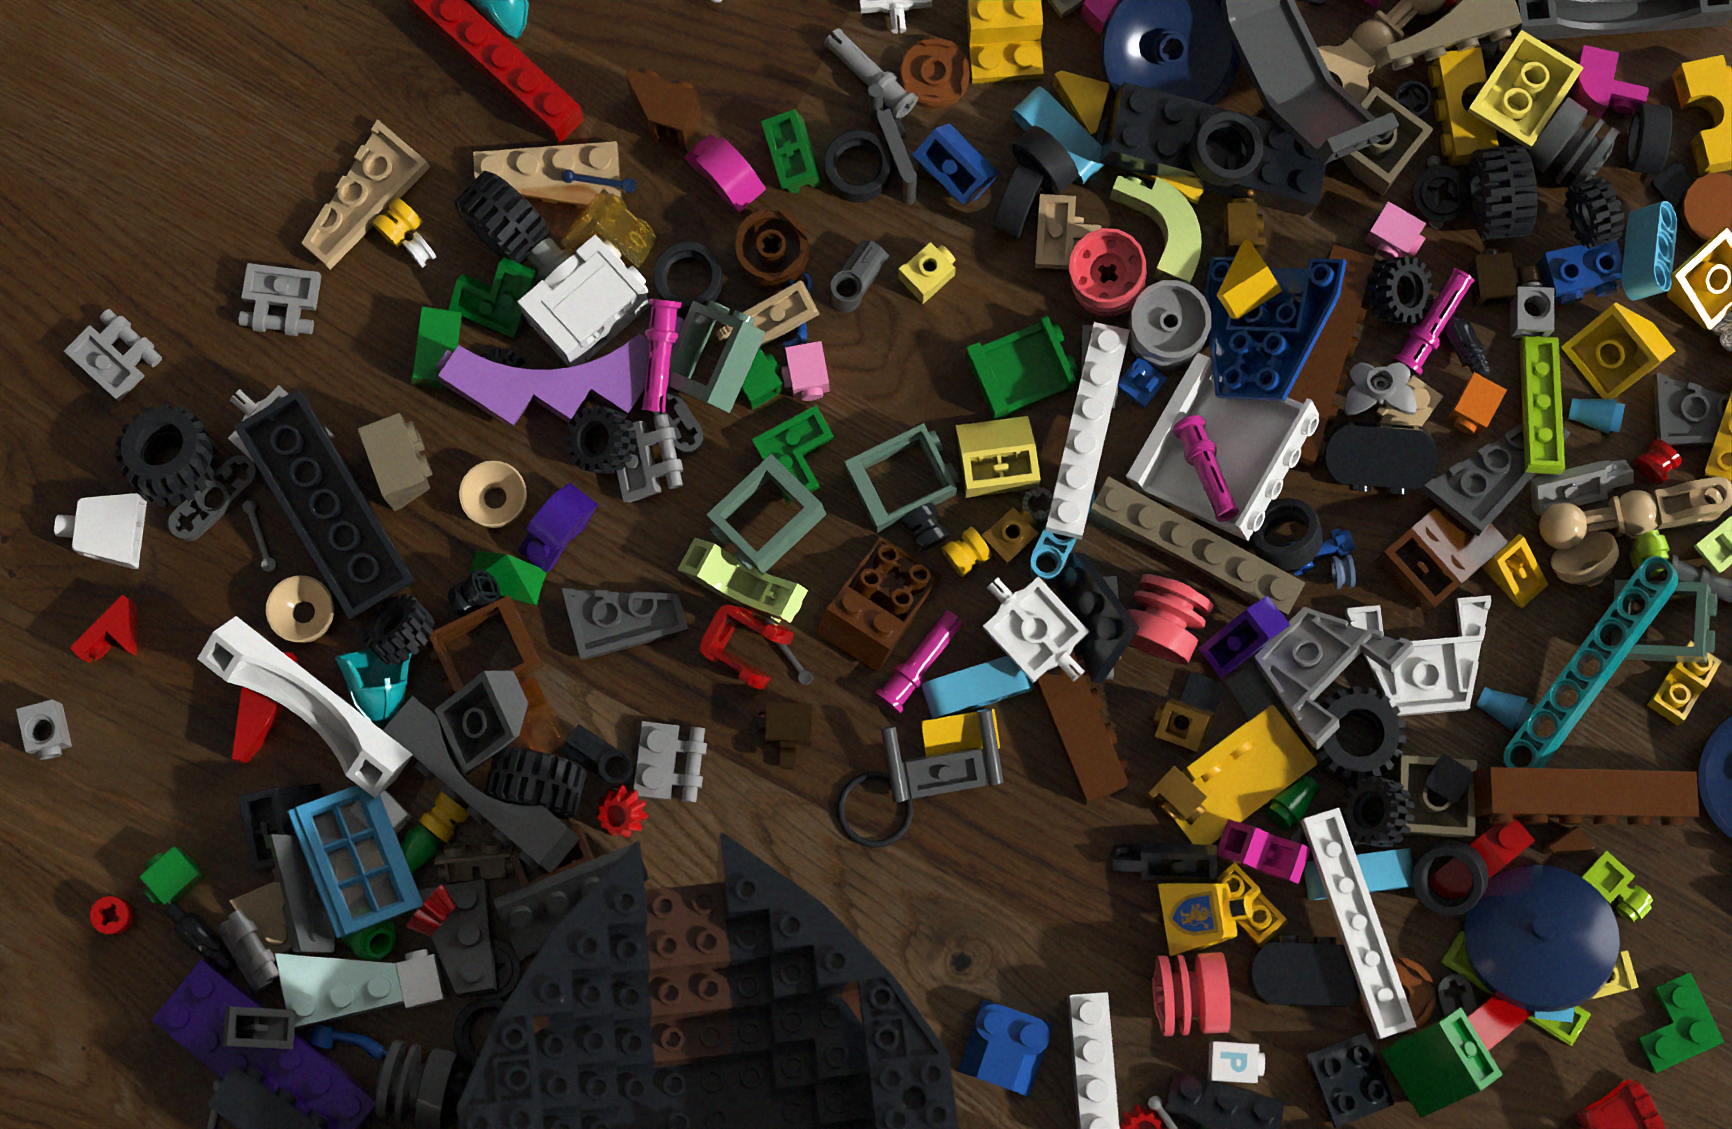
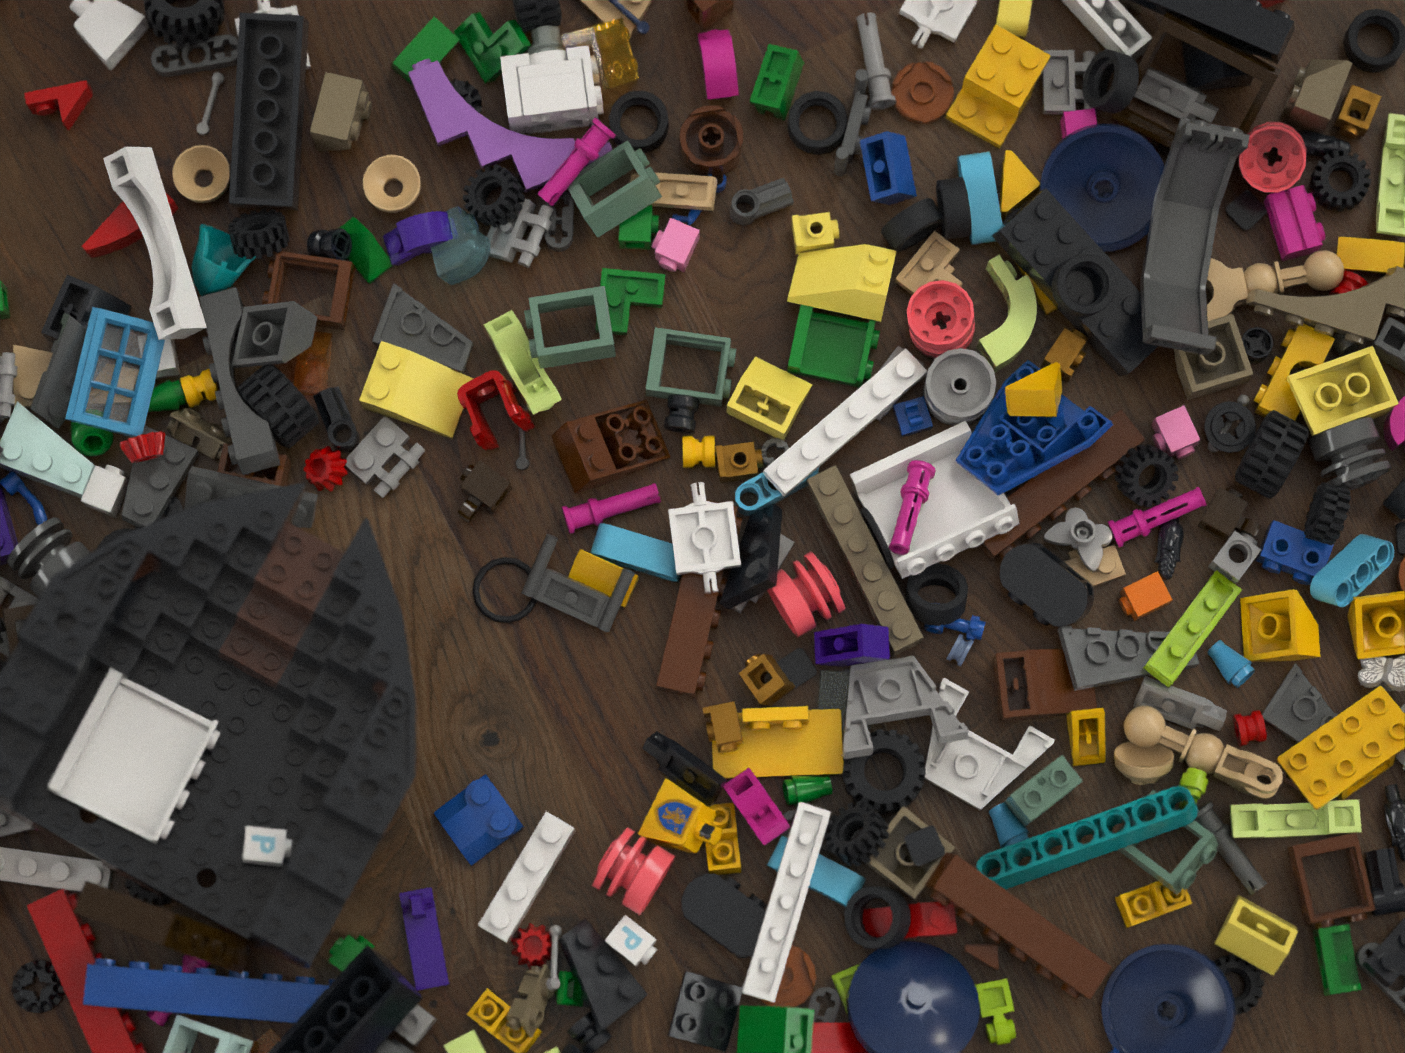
camera: 35 degrees right, 0 degrees up
(612, 511) = (465, 253): none -> clear light blue brick
(655, 677) = (414, 390): none -> light yellow slope
(991, 296) = (844, 280): none -> light yellow slope
(1168, 502) = (878, 537): none -> black piece
(1525, 639) = (1043, 791): none -> sand green window

